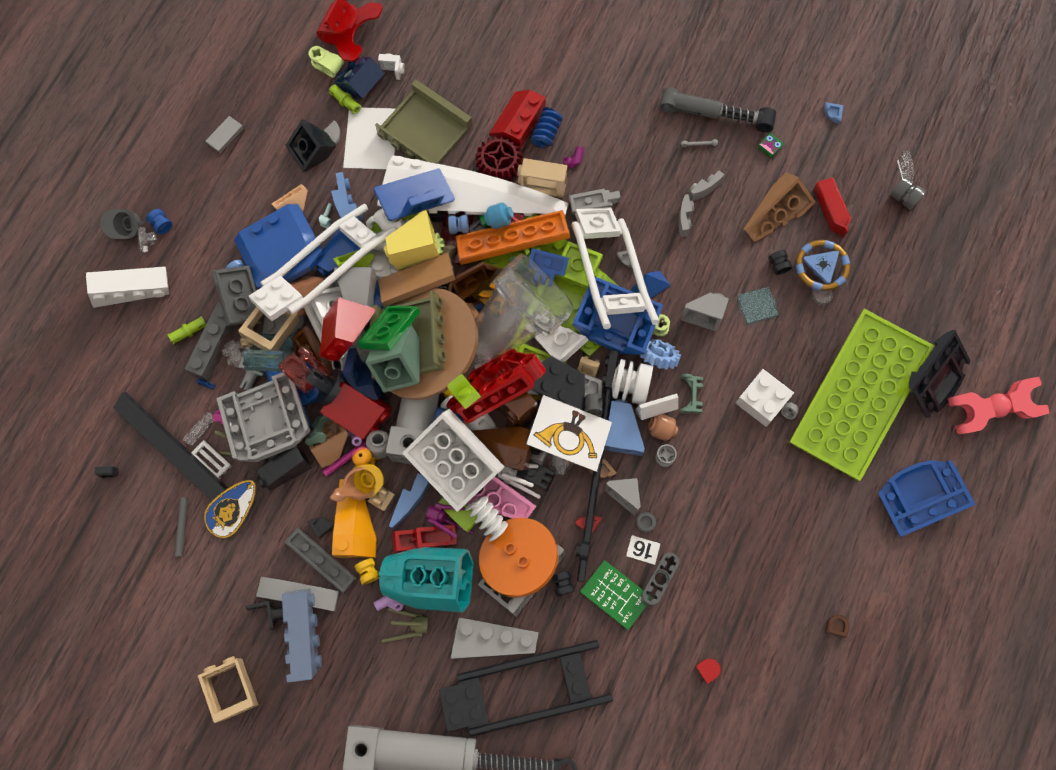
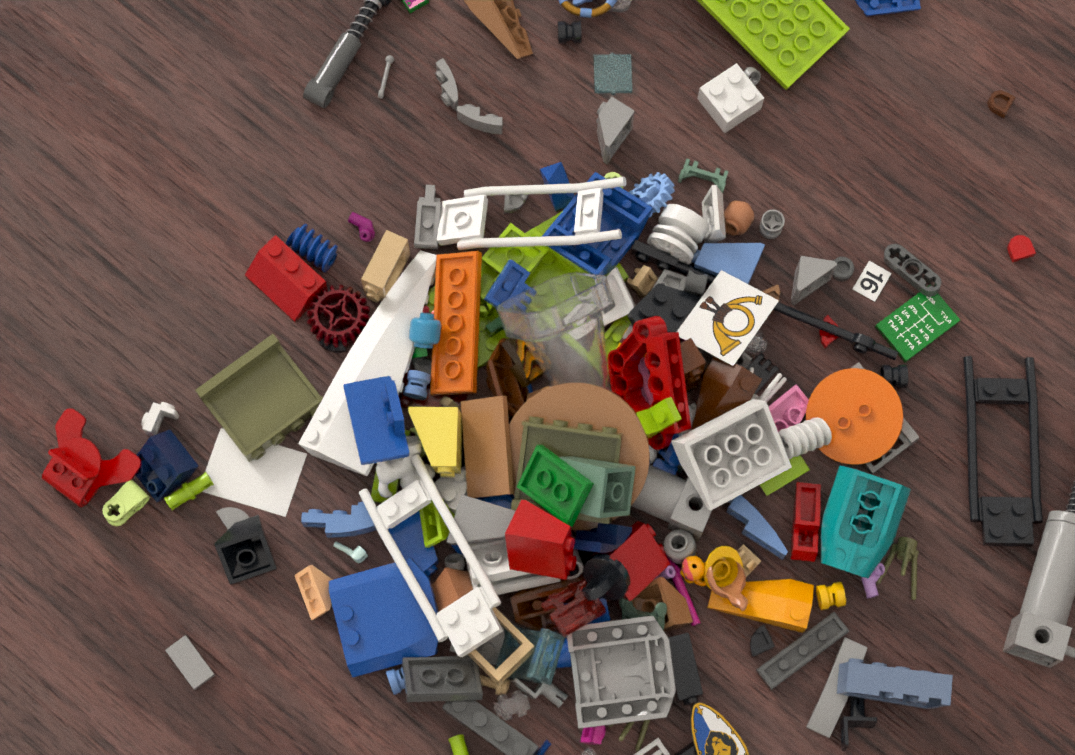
camera: 80 degrees left, 0 degrees up
(437, 515) = (782, 497): magenta plant -> none
(488, 639) = (938, 476): light grey wing -> none

